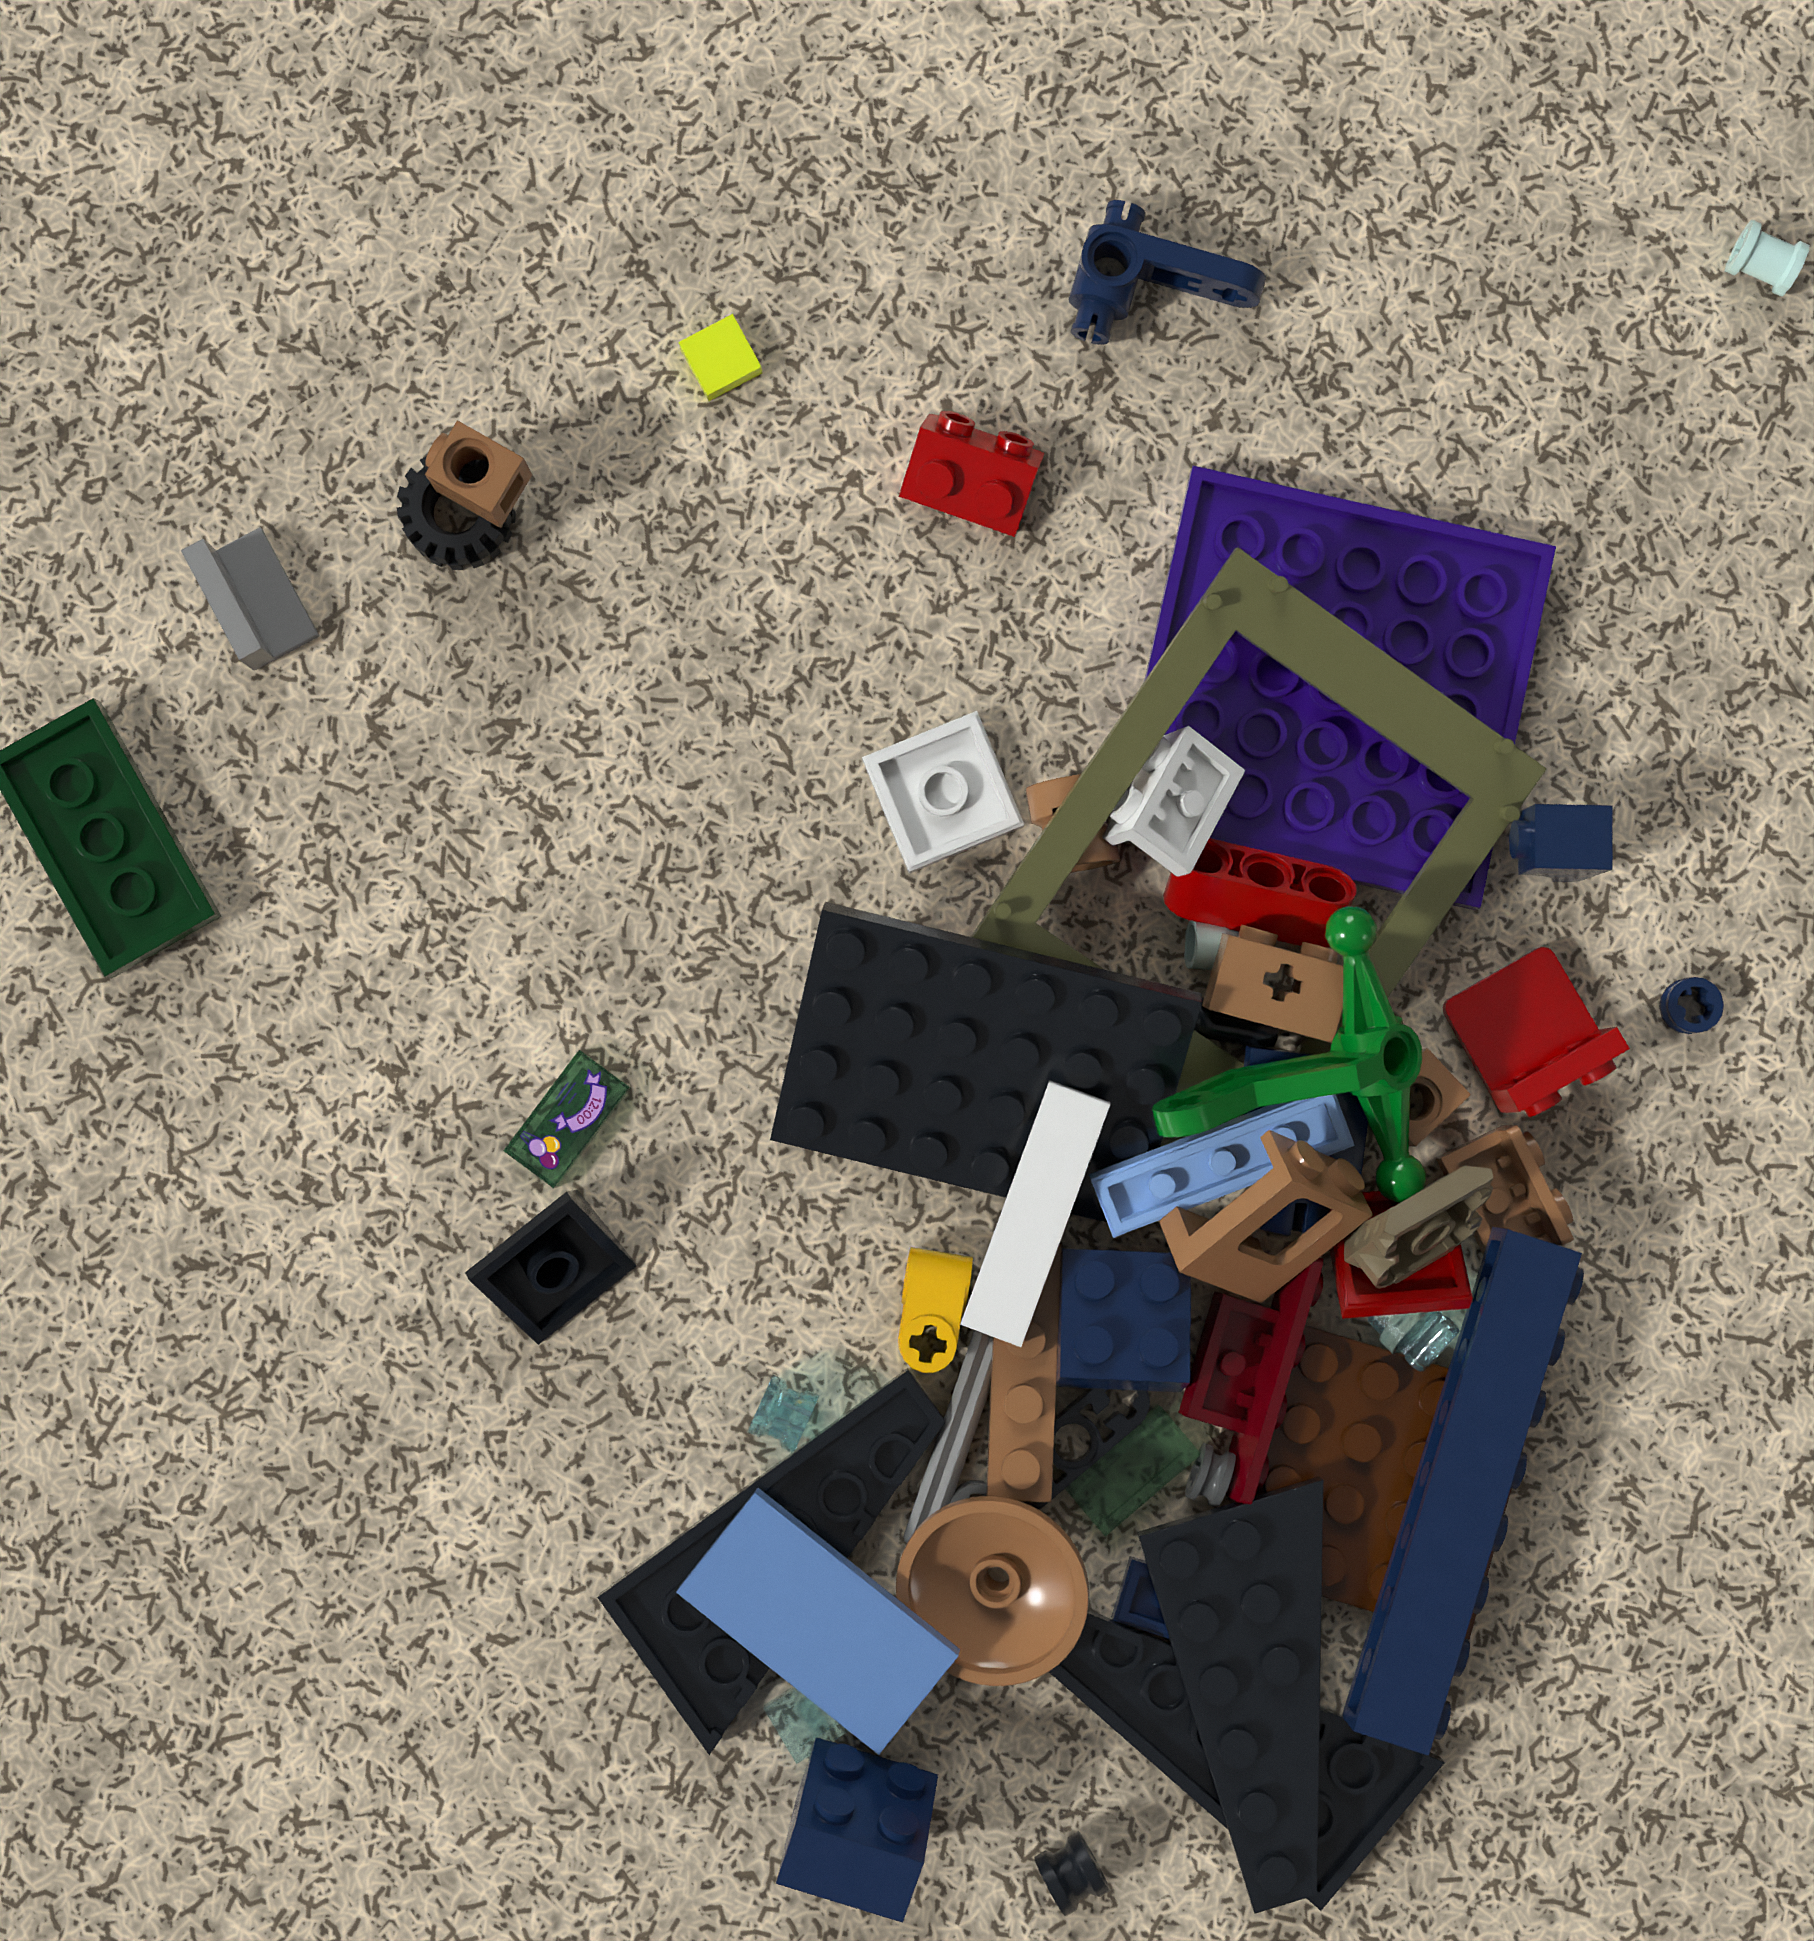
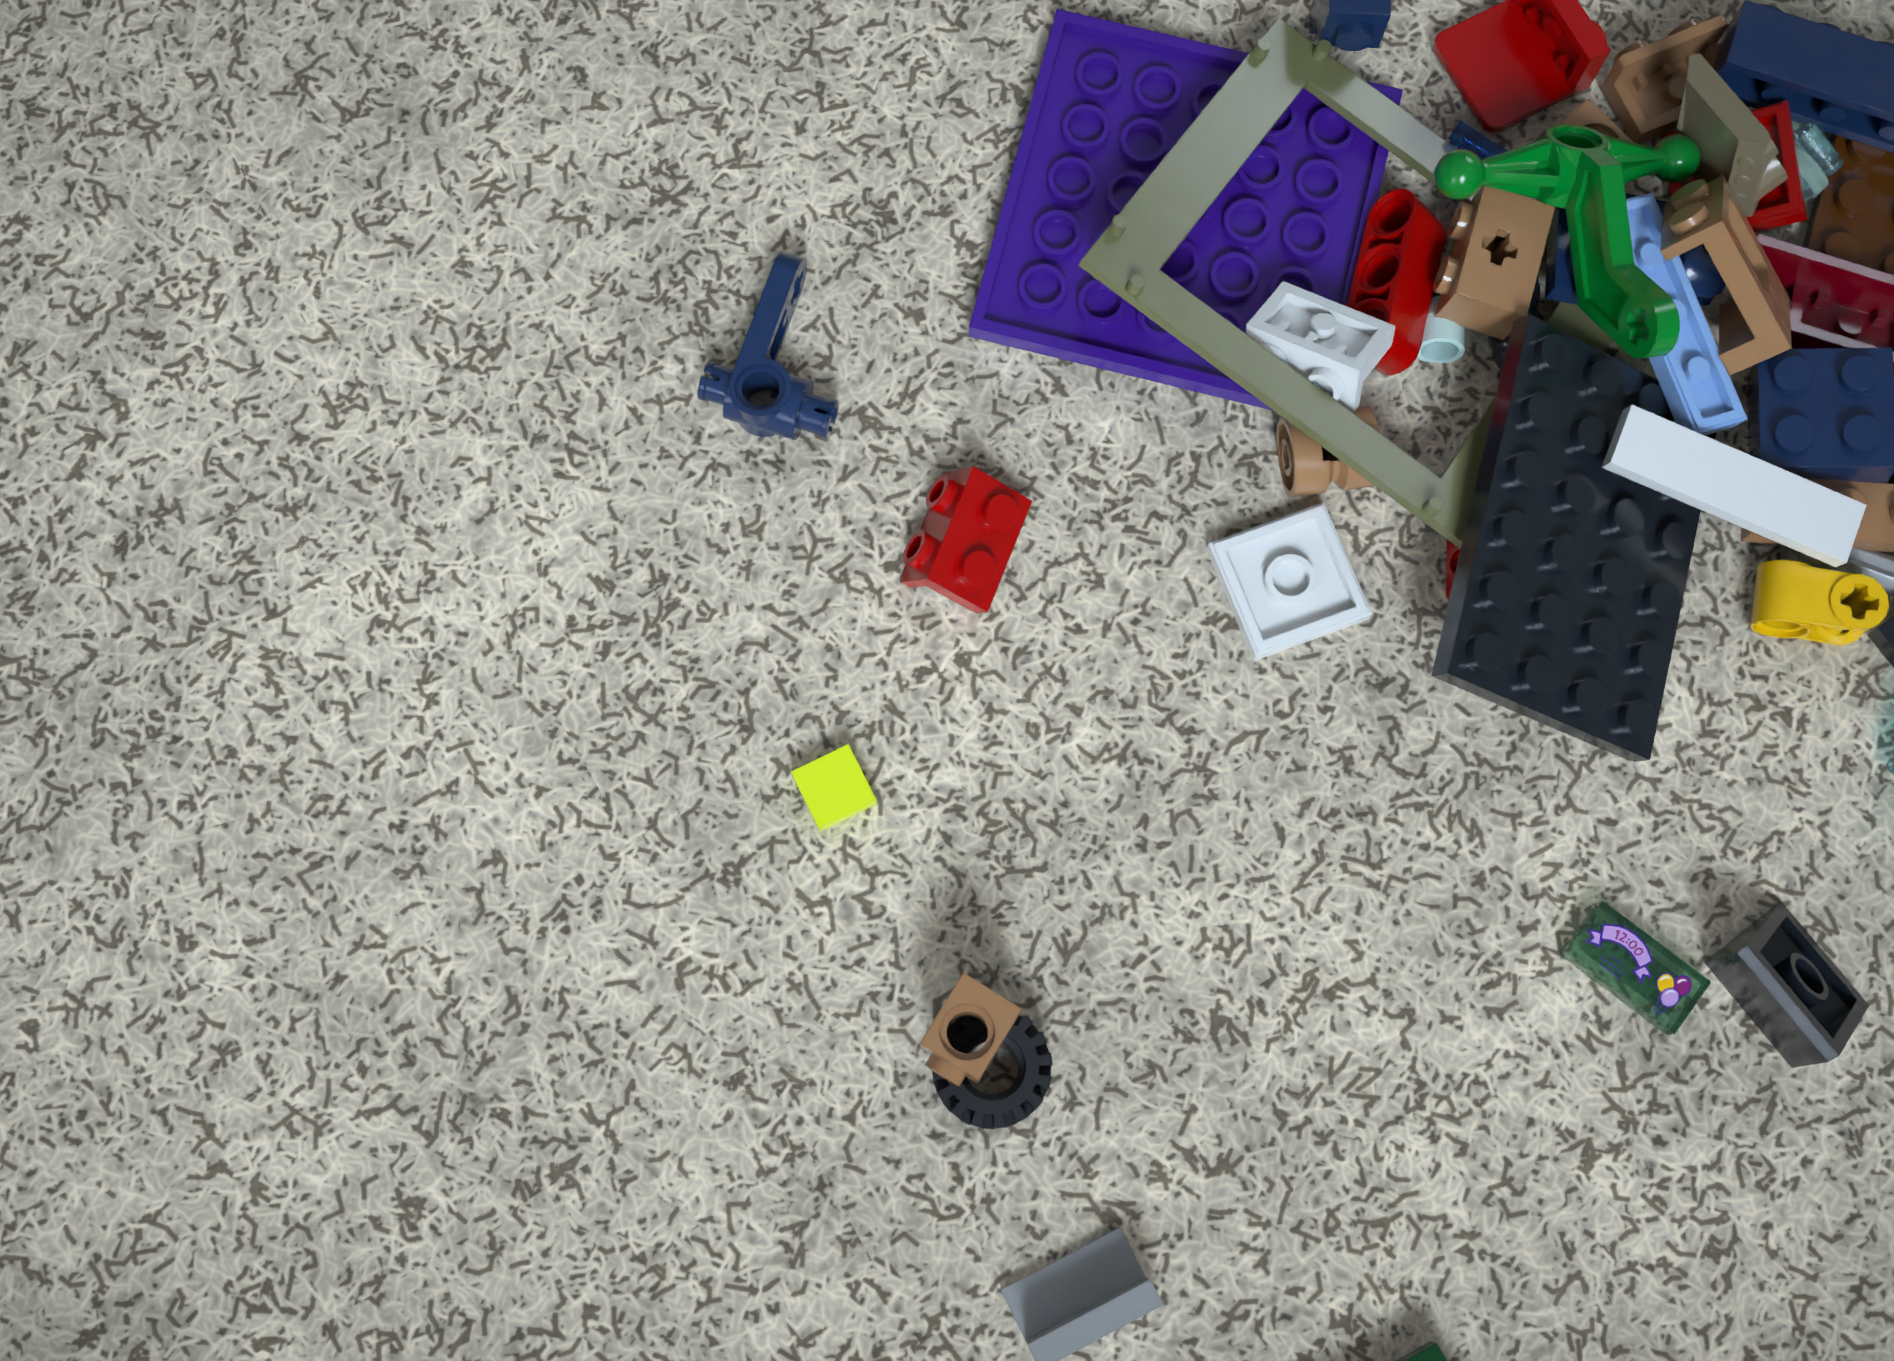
camera: 80 degrees left, 10 degrees down
(1419, 989) = (1471, 139): none -> clear blue tile

